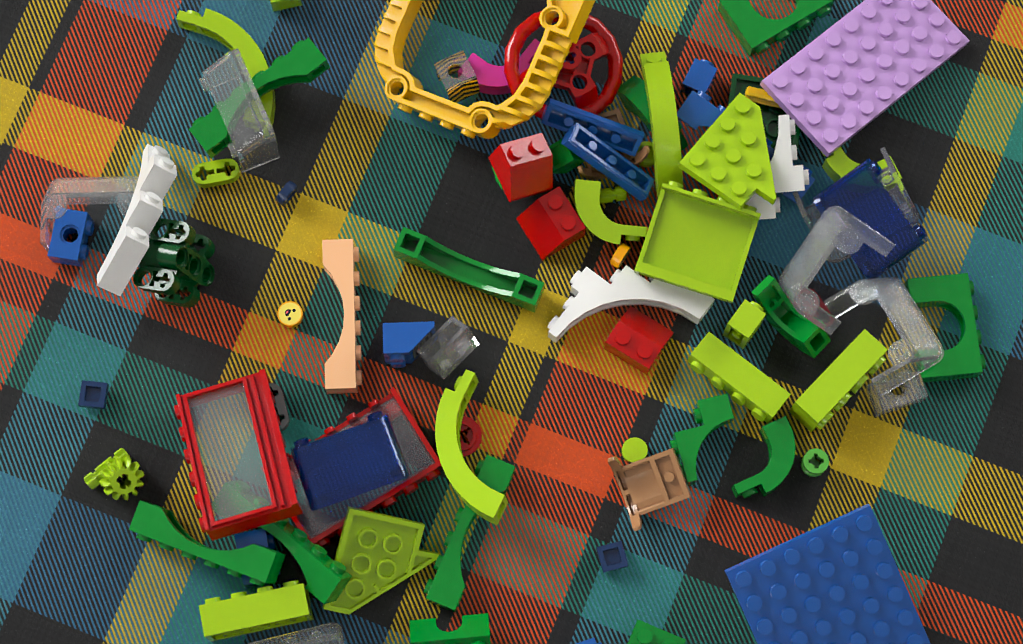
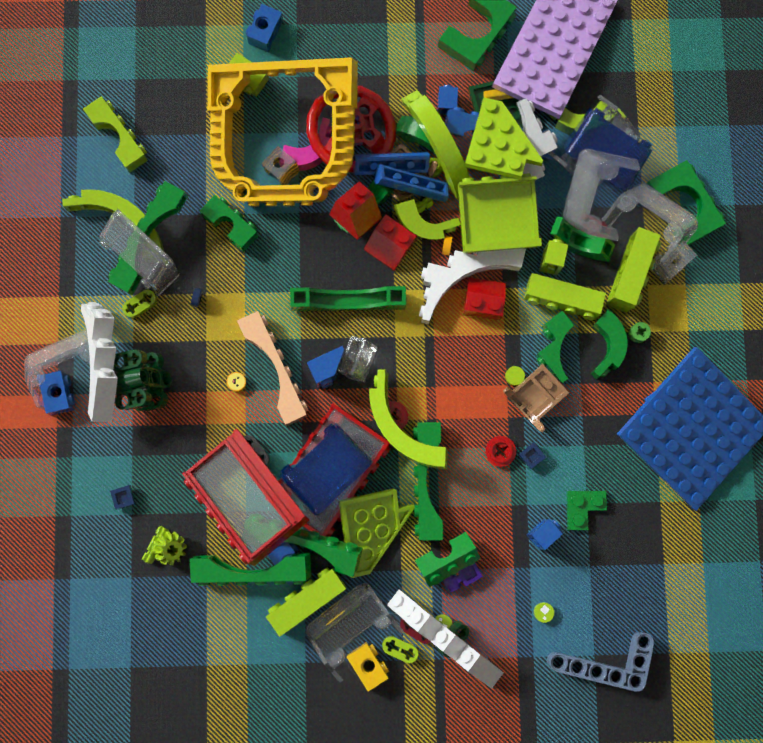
camera: 30 degrees left, 5 degrees up
(357, 100) = (217, 211): none -> green arch
(582, 525) = (509, 453): none -> red gear

